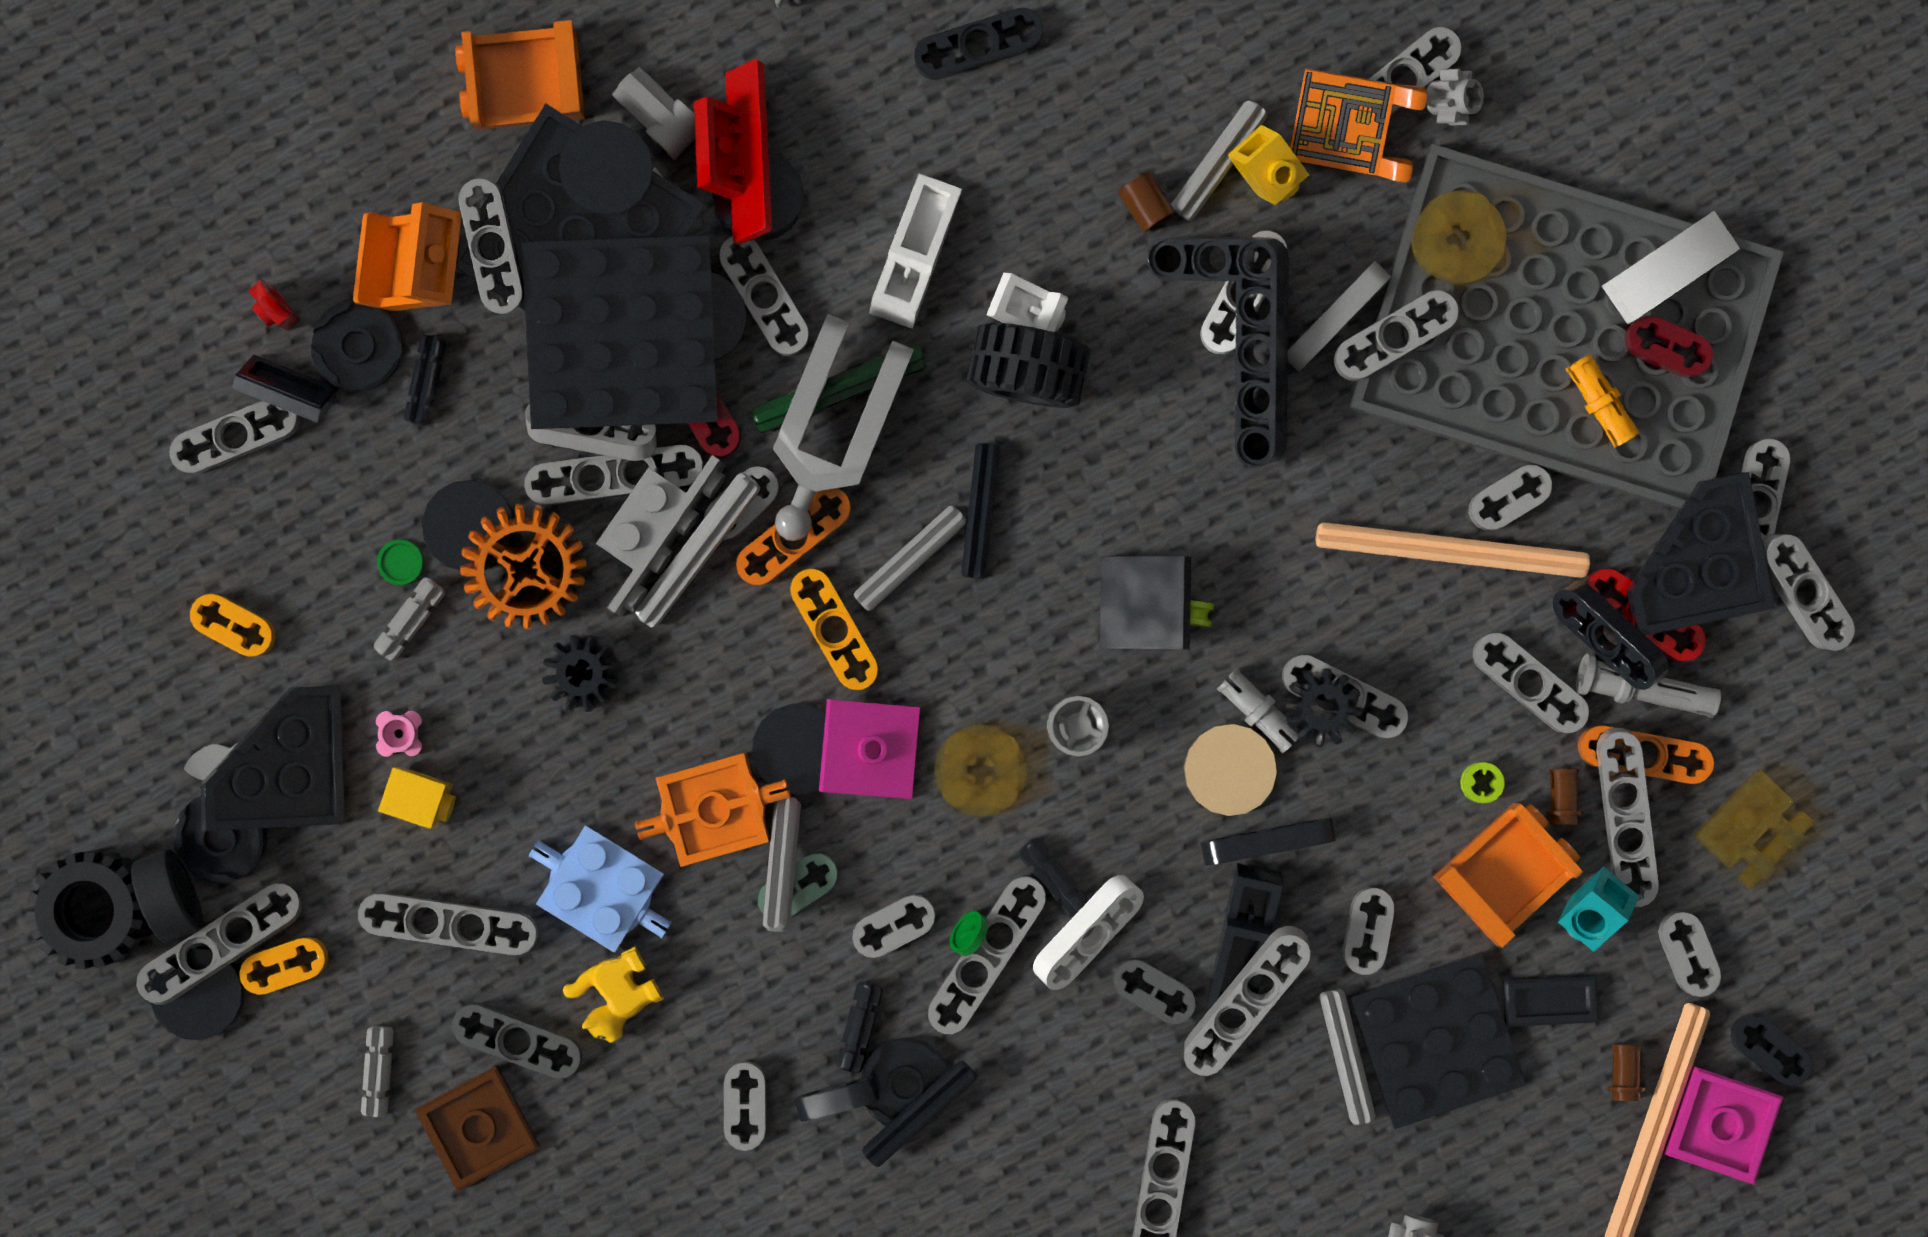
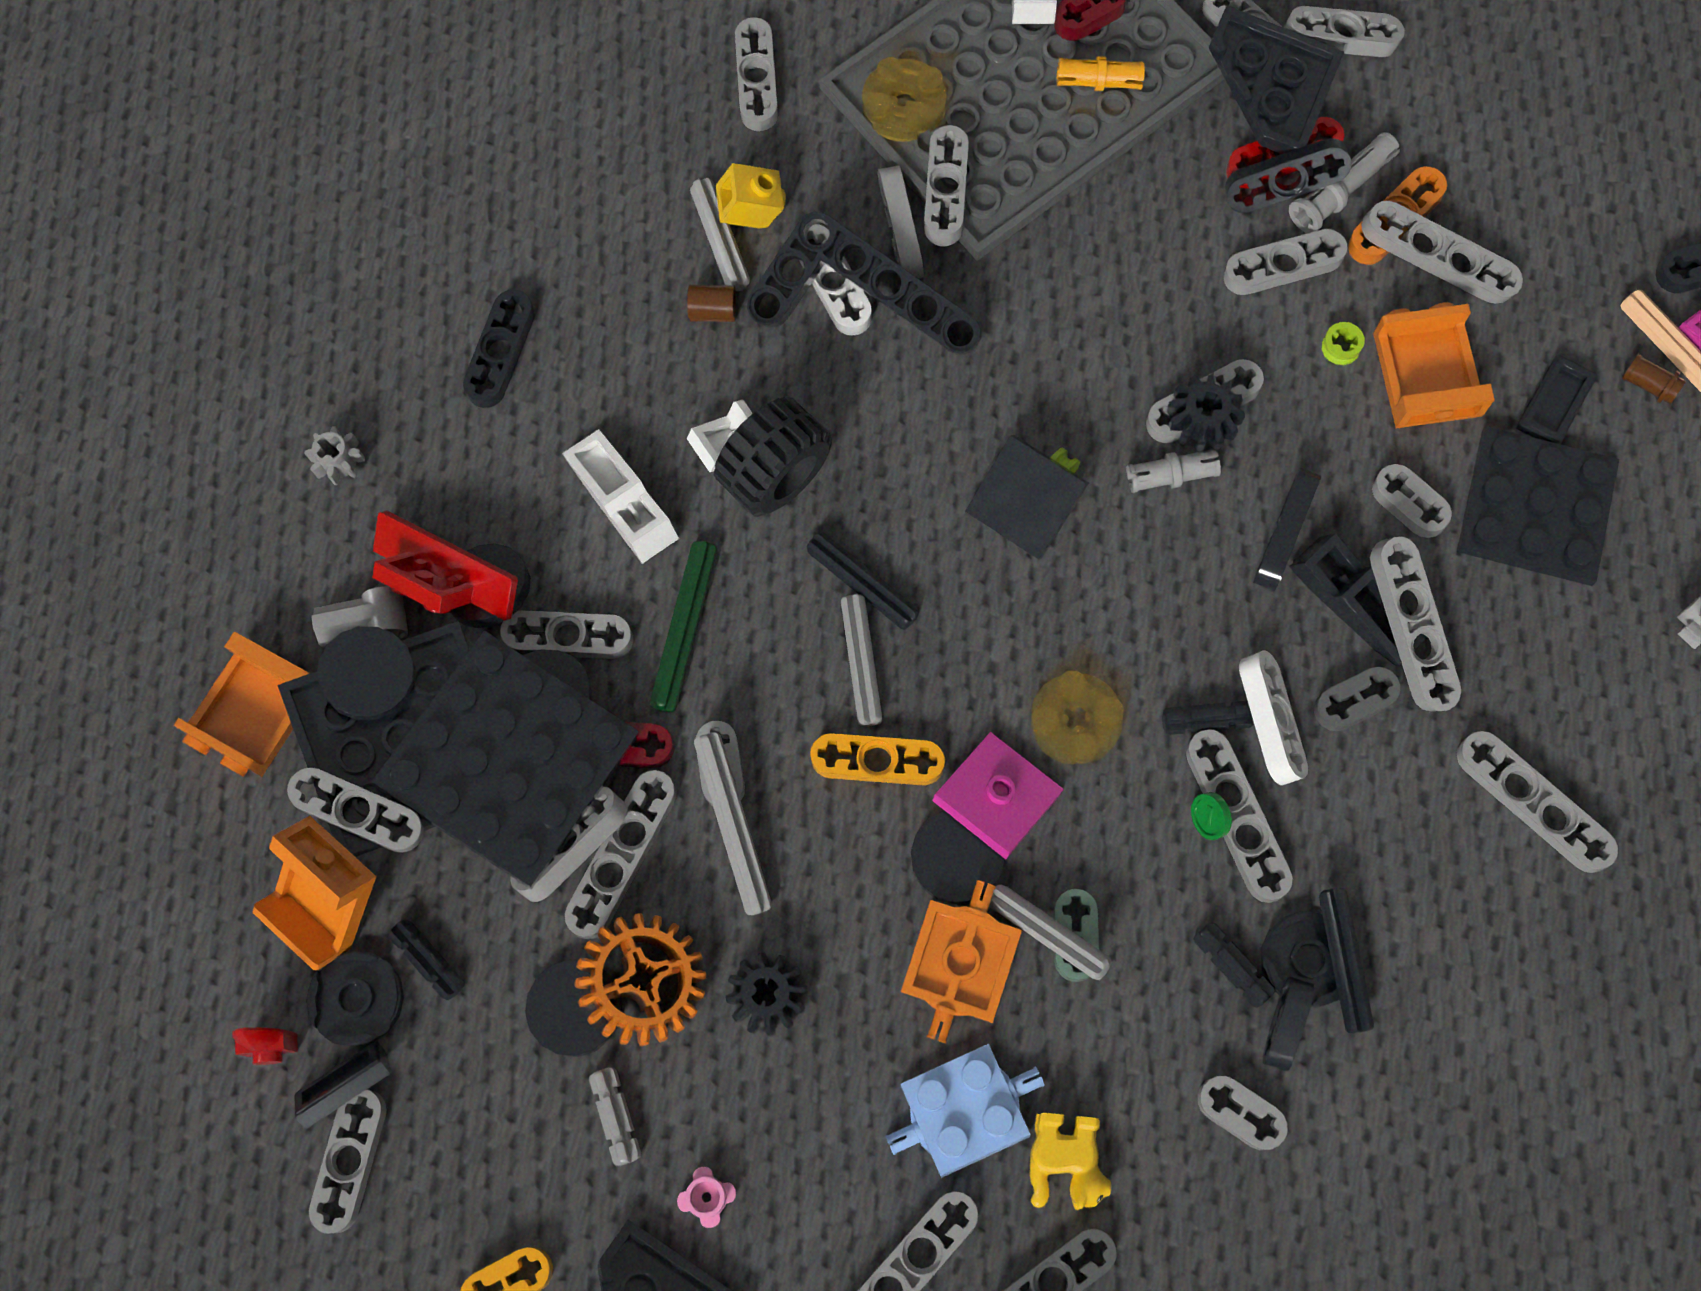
camera: 50 degrees left, 15 degrees down
(400, 562) = (561, 1091): green piece -> none
(417, 798) = (774, 1217): yellow brick -> none
(650, 524) = (682, 849): light grey bracket -> none
(773, 566) = (787, 707): orange beam -> none
(814, 473) = (734, 683): light grey piece -> none
(898, 936) = (1174, 878): light grey beam -> none
(1077, 726) = (1092, 611): light grey wheel -> none
(1230, 769) = (1207, 523): tan tile -> none
(1346, 123) = (758, 124): flag -> none
(1347, 1056) = (1509, 582): light grey axle -> none
(1452, 550) = (1139, 255): light nougat axle -> none
(1454, 96) = (796, 43): light grey gear -> none
(1516, 507) = (1119, 190): light grey beam -> none
(1564, 797) = (1393, 290): reddish brown pin -> none
(1604, 895) = (1494, 302): teal brick -> none
(1699, 949) = (1581, 277): light grey beam -> none
(1744, 819) = (1497, 178): clear yellow plate -> none

